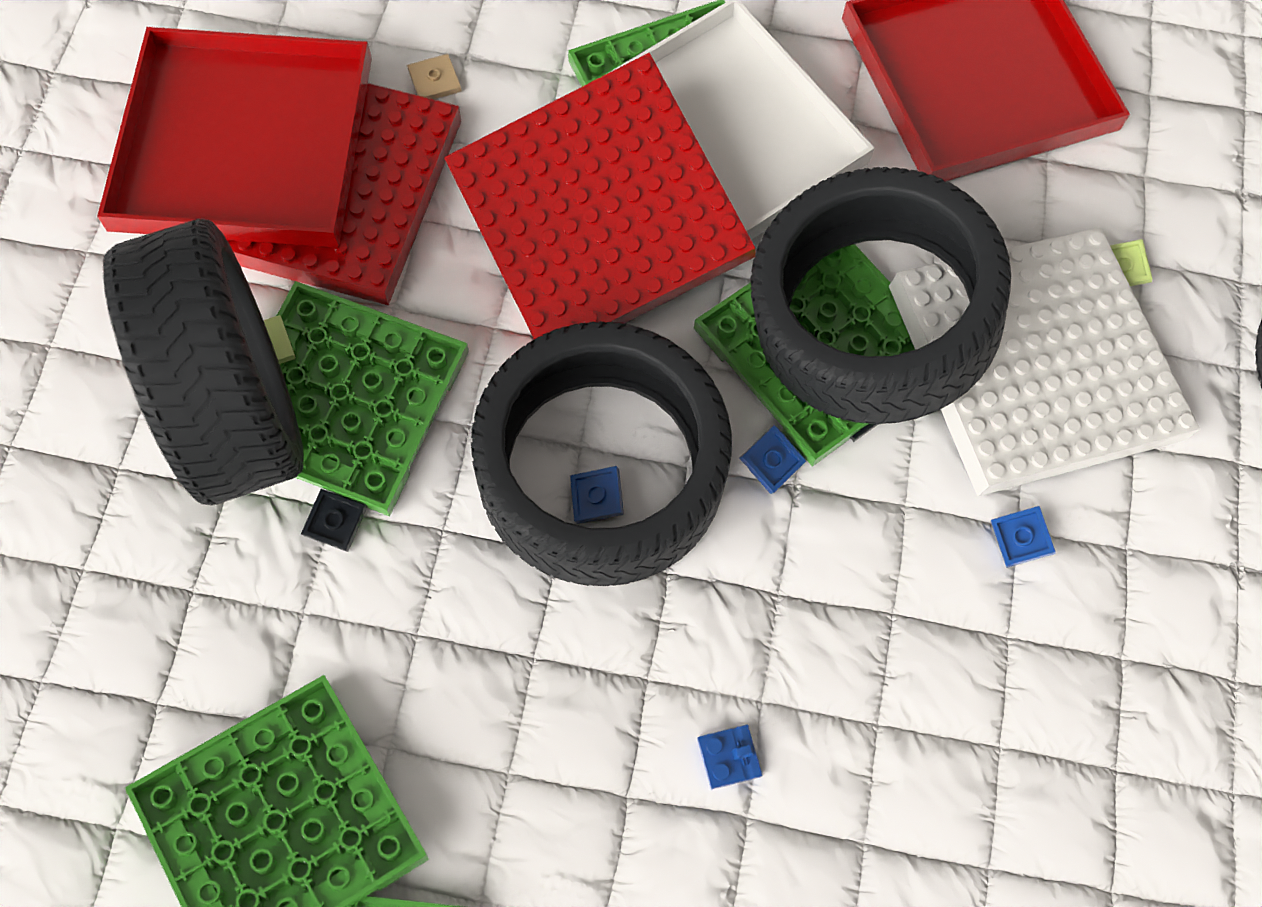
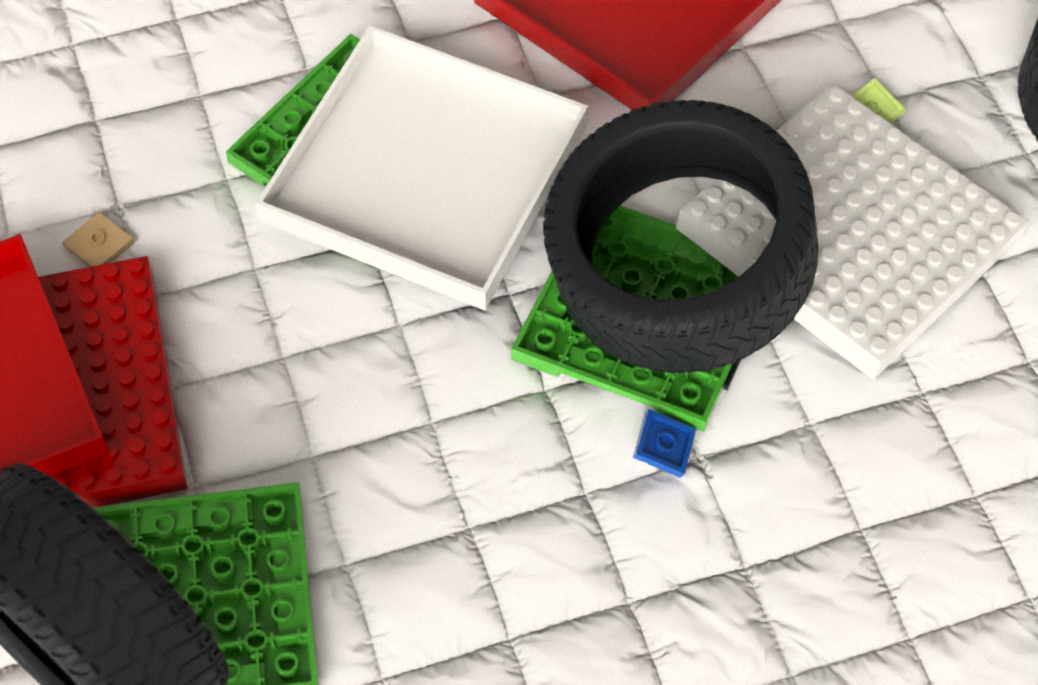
camera: 25 degrees left, 10 degrees down
(596, 495) = (517, 563): blue hinge -> none
(600, 203) = (356, 286): red brick -> none
(601, 357) = (495, 414): black tyre -> none
(1023, 536) = (934, 396): blue hinge -> none

